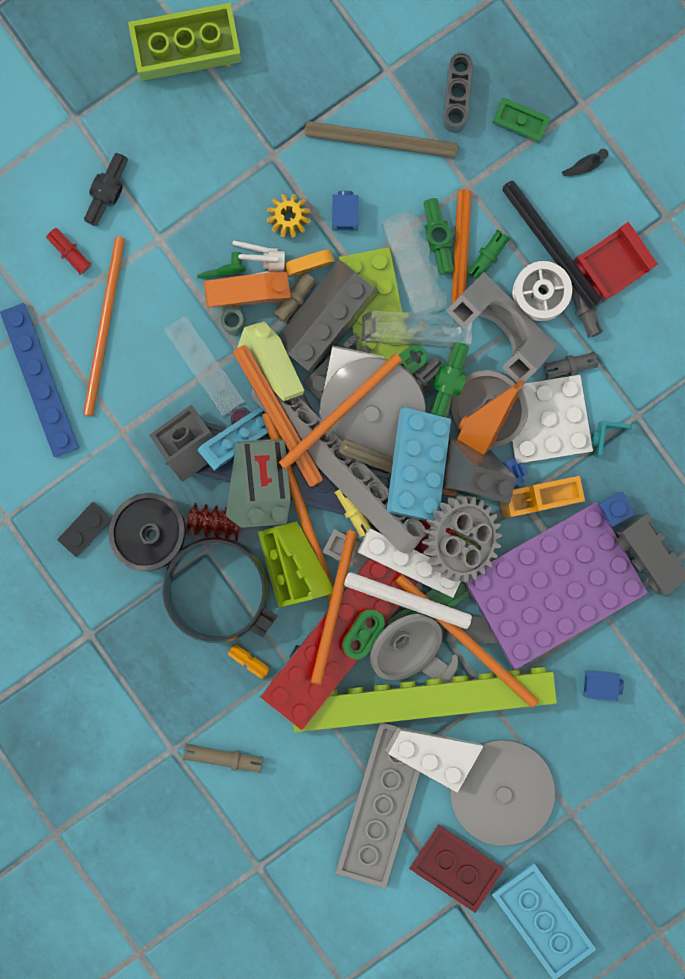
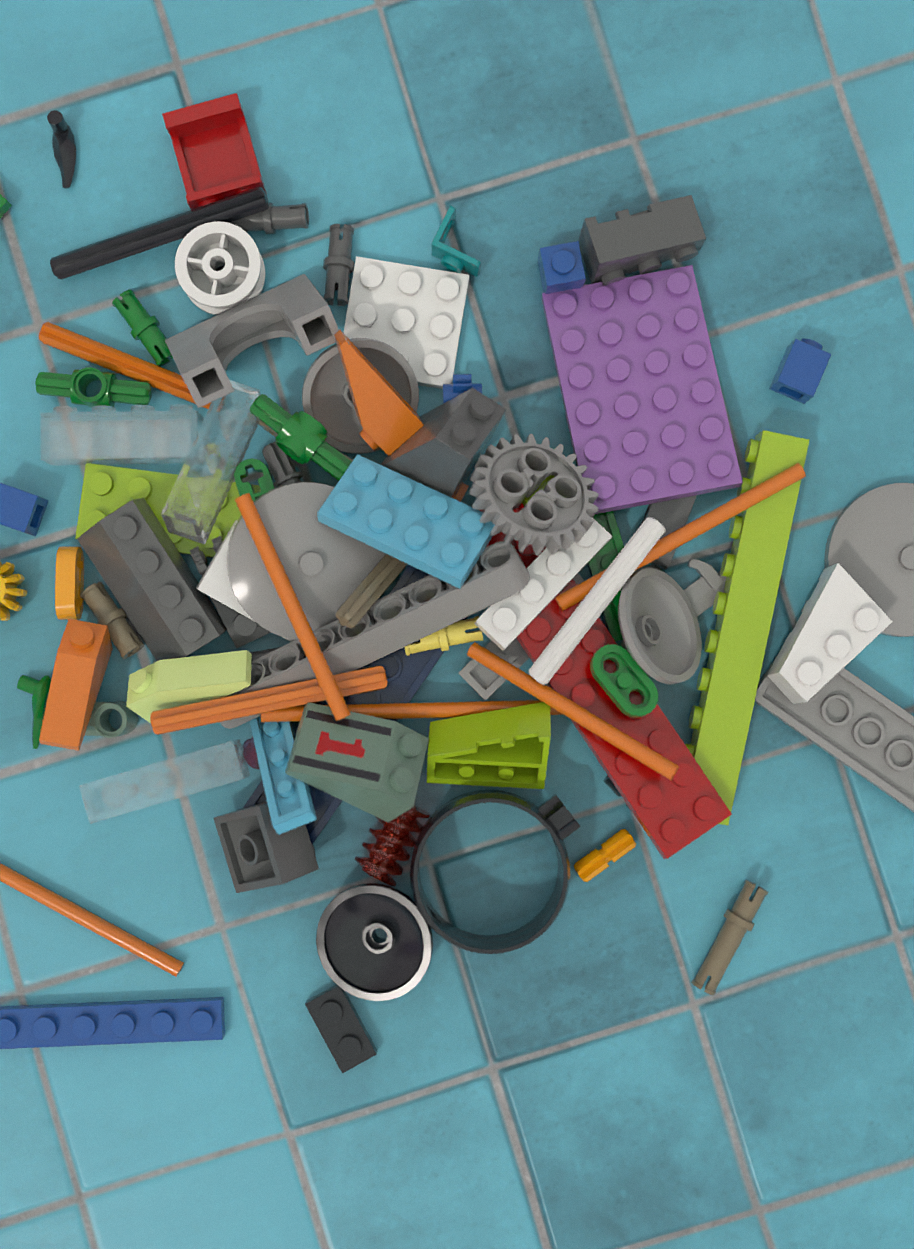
camera: 75 degrees left, 0 degrees up
(272, 258) = (44, 633): white plant -> none
(543, 497) = (511, 363): light orange slope -> none

